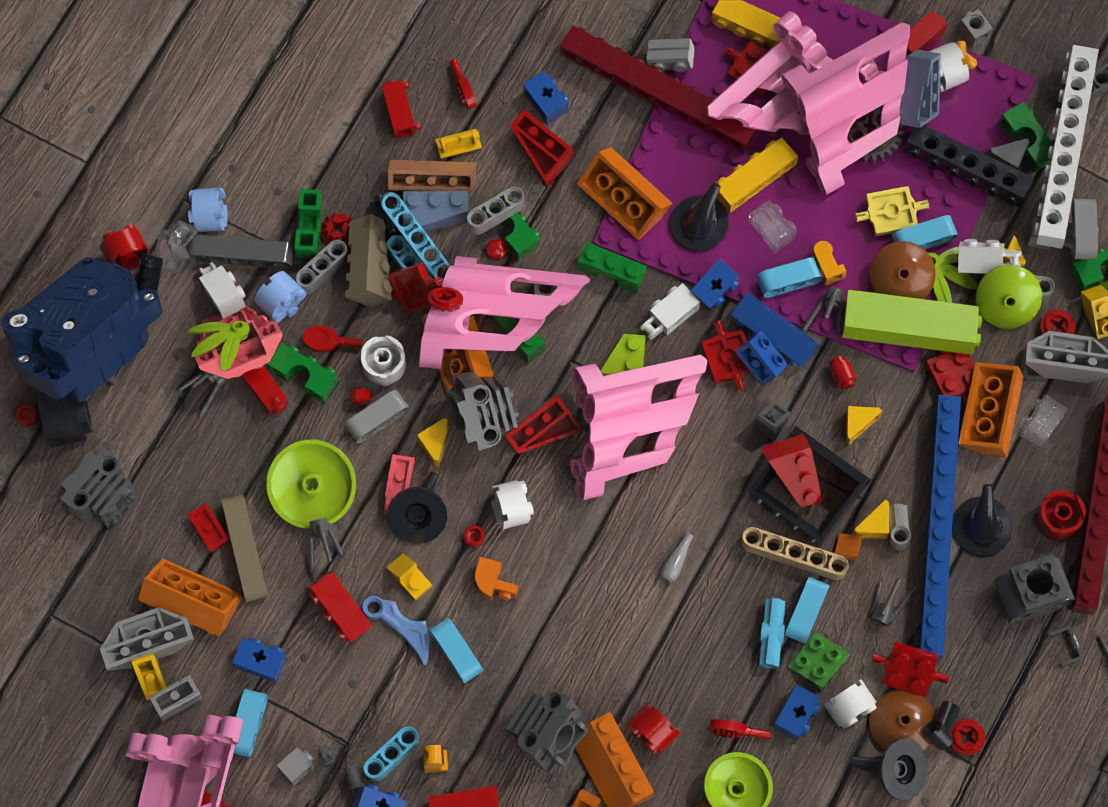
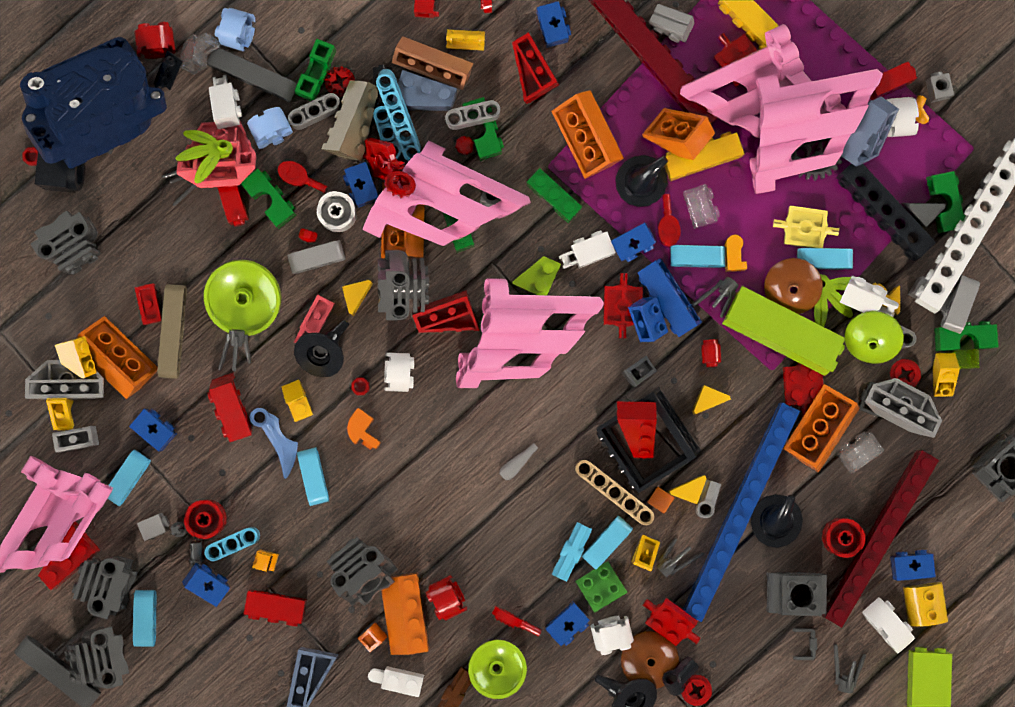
camera: 15 degrees right, 15 degrees up
(149, 602) = (76, 356): none -> yellow slope
(352, 723) = (195, 514): none -> red brick
(394, 314) = (353, 176): none -> blue brick
(722, 156) = (680, 132): none -> orange slope
(746, 257) = (668, 227): none -> red piece
(853, 608) = (646, 553): none -> yellow slope

